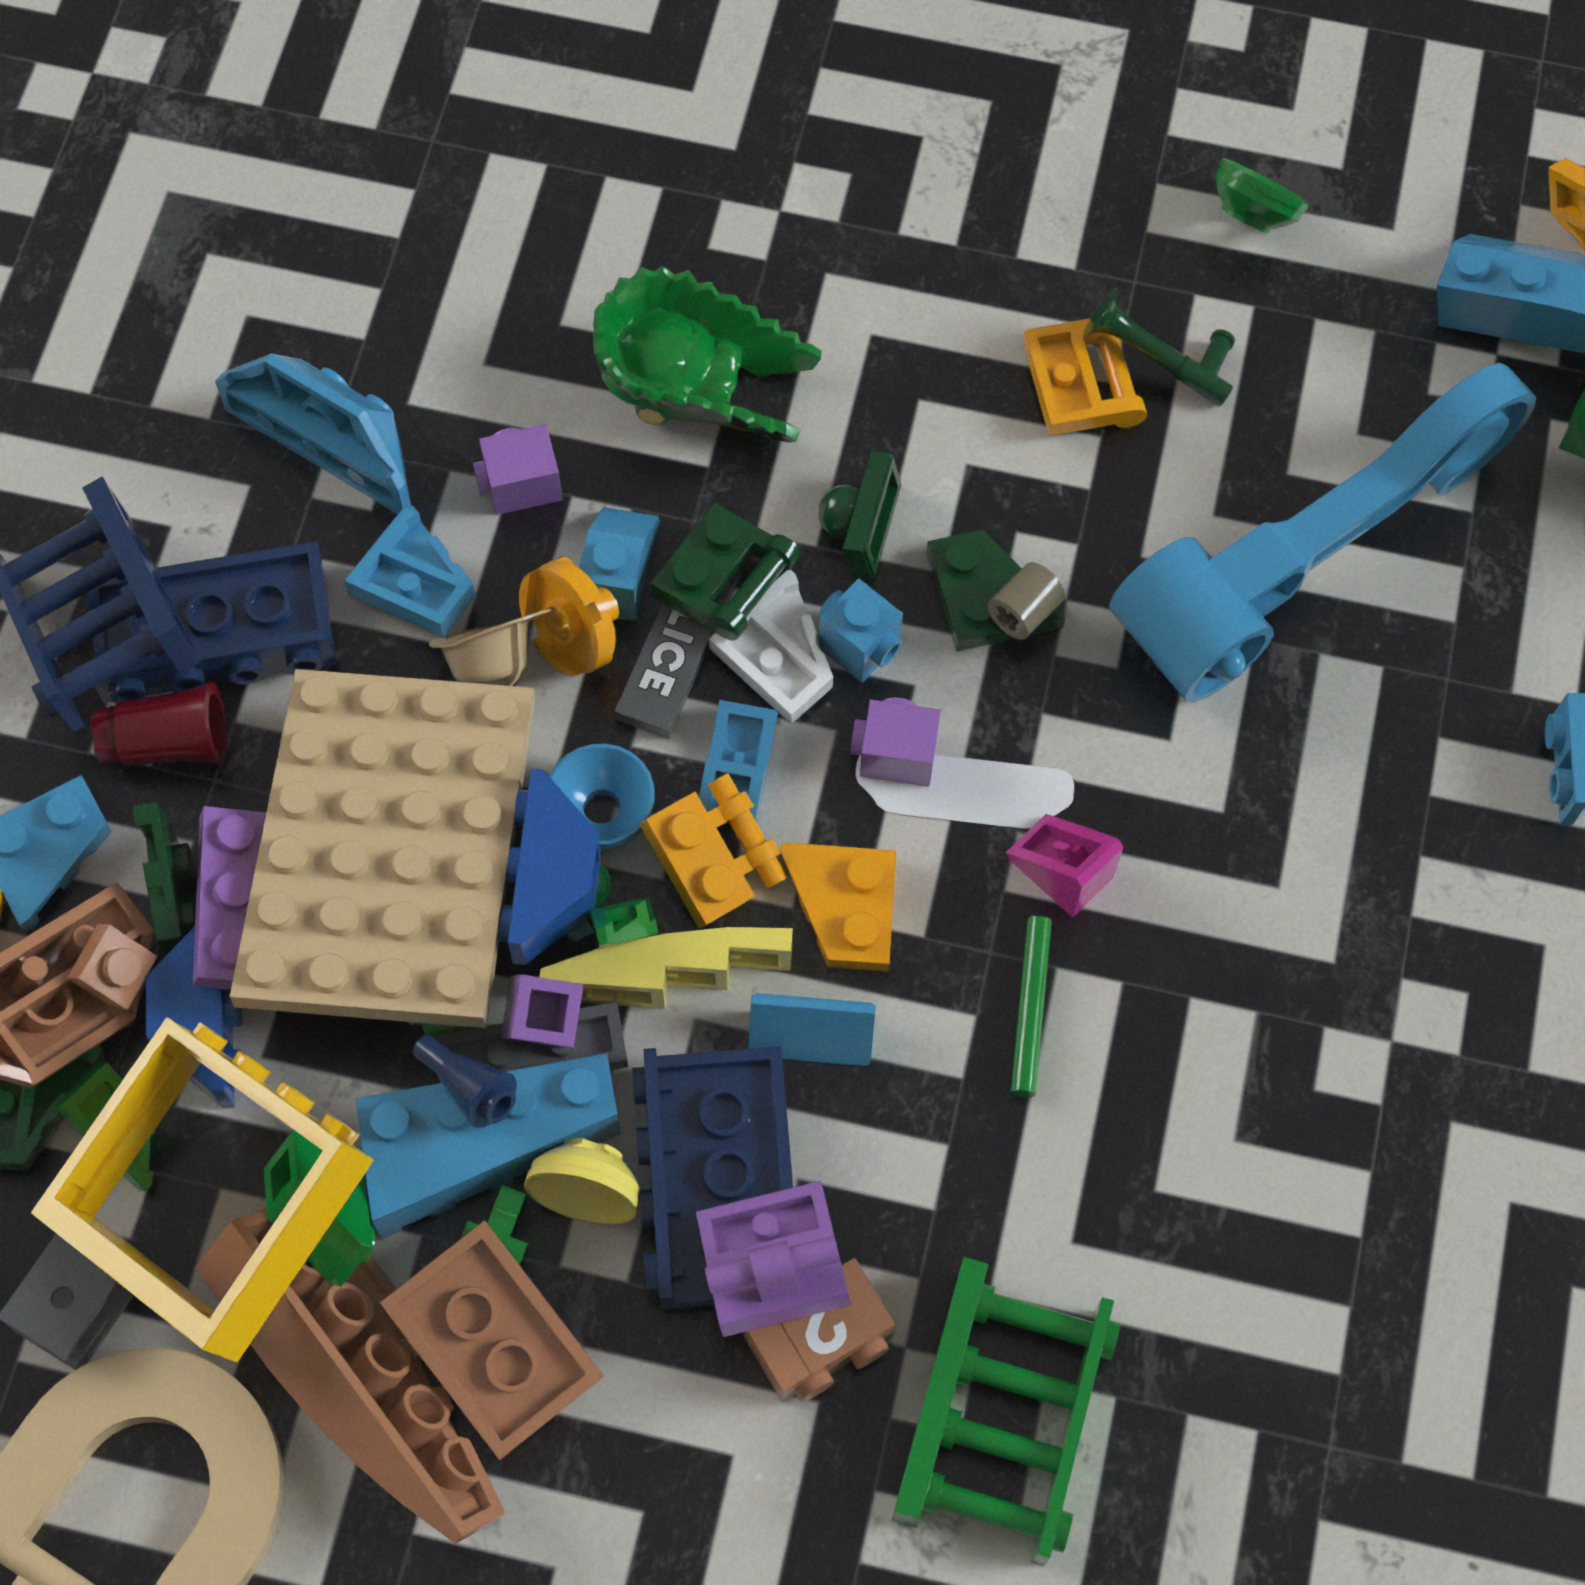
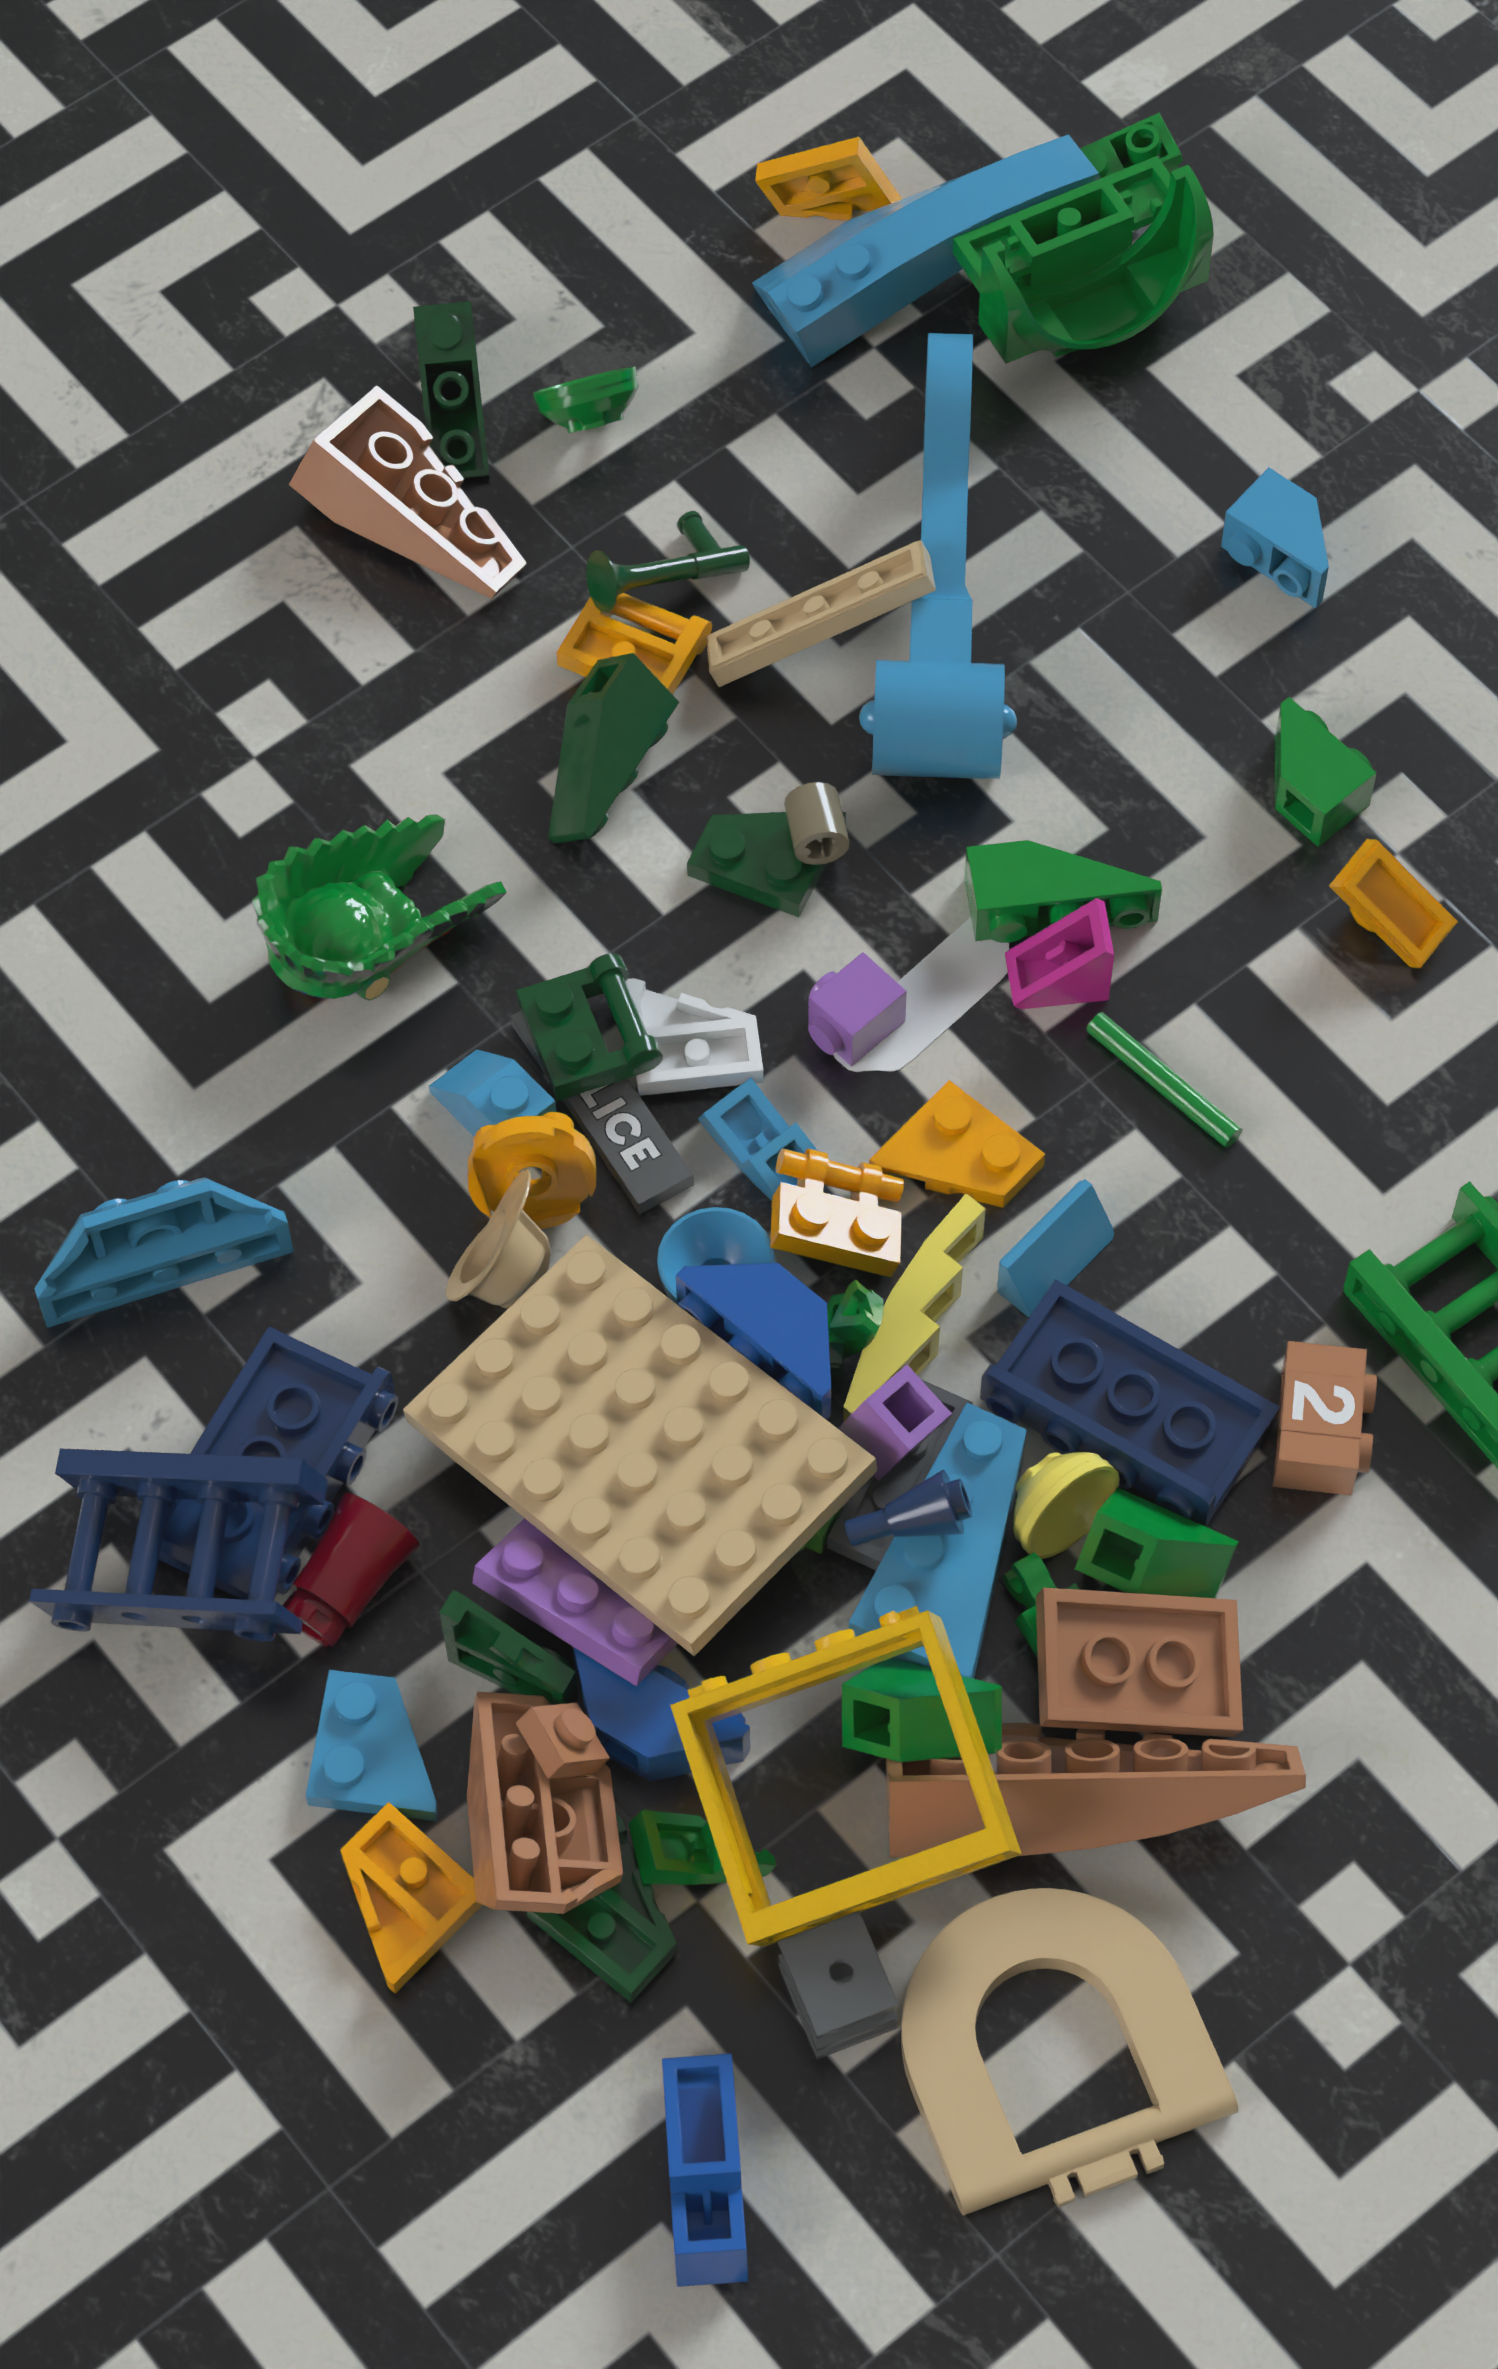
camera: 50 degrees left, 5 degrees down
(412, 576) = (370, 1274): dark azure wing -> none
(518, 469) = (339, 1121): medium lavender brick -> none
(597, 1282) = (1154, 1550): none -> green slope
(772, 1259) = (1246, 1394): medium lavender plate -> none
(859, 630) = (731, 964): dark azure brick -> none
(863, 514) = (618, 892): dark green tile -> none
(985, 409) = (605, 736): none -> dark green slope
(1066, 138) = (390, 487): none -> nougat wedge
(1110, 793) = (1029, 886): none -> green slope
(1185, 108) = (451, 386): none -> dark green slope
(1208, 474) = (820, 613): none -> tan tile
(1323, 1066) = (1392, 903): none -> light orange tile
(1394, 928) = (1317, 776): none -> green slope

